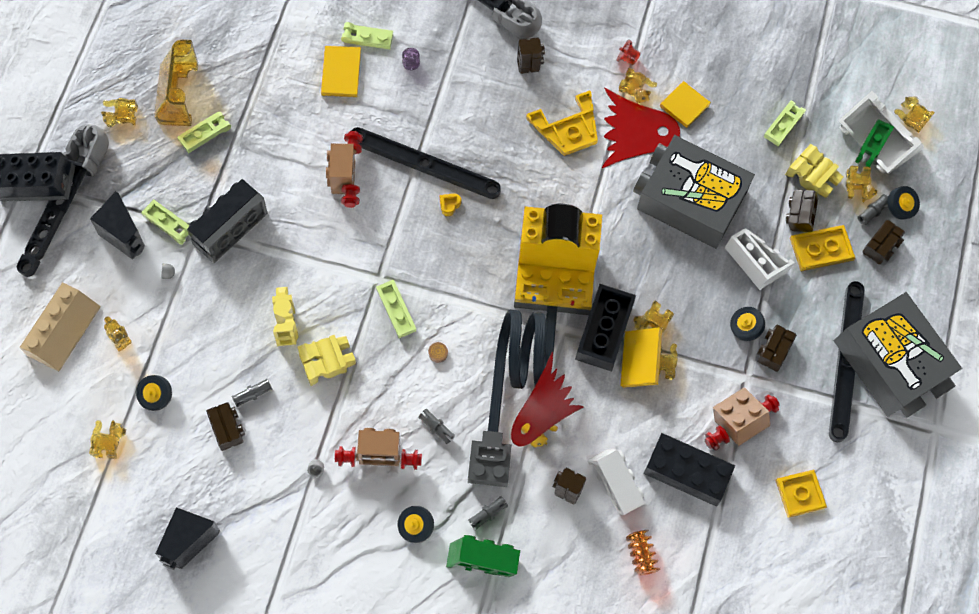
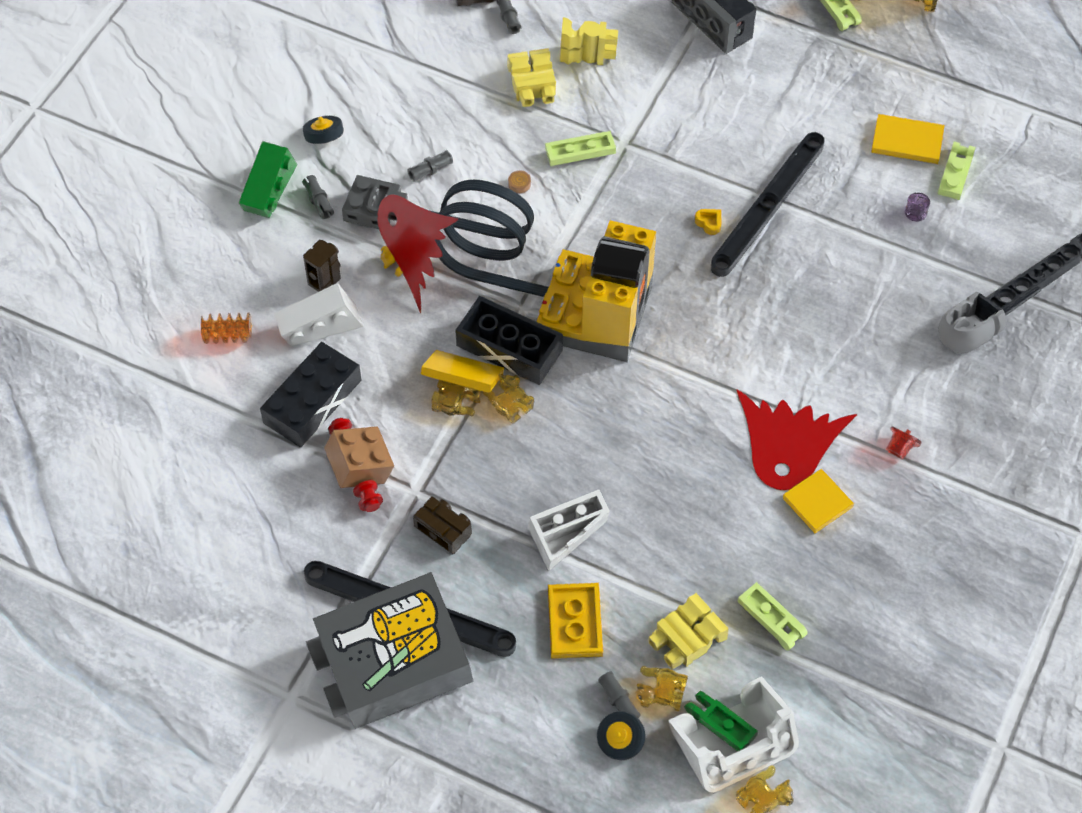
camera: 105 degrees right, 10 degrees down
(318, 470) = (410, 56): light grey hinge -> none
(341, 168) = (764, 114): medium nougat brick -> none
(378, 449) = (411, 105): medium nougat brick -> none
(530, 55) = (904, 322): dark brown brick -> none
(571, 132) = (791, 363): yellow wing -> none
(634, 83) = (852, 443): clear yellow animal -> none
(692, 190) = (676, 470): dark grey brick -> none
(747, 323) = (482, 498): black wheel -> none
(801, 493) = (251, 513): yellow tile -> none
(802, 210) = (629, 600): brick -> none
(883, 242) = (565, 694): dark brown brick -> none

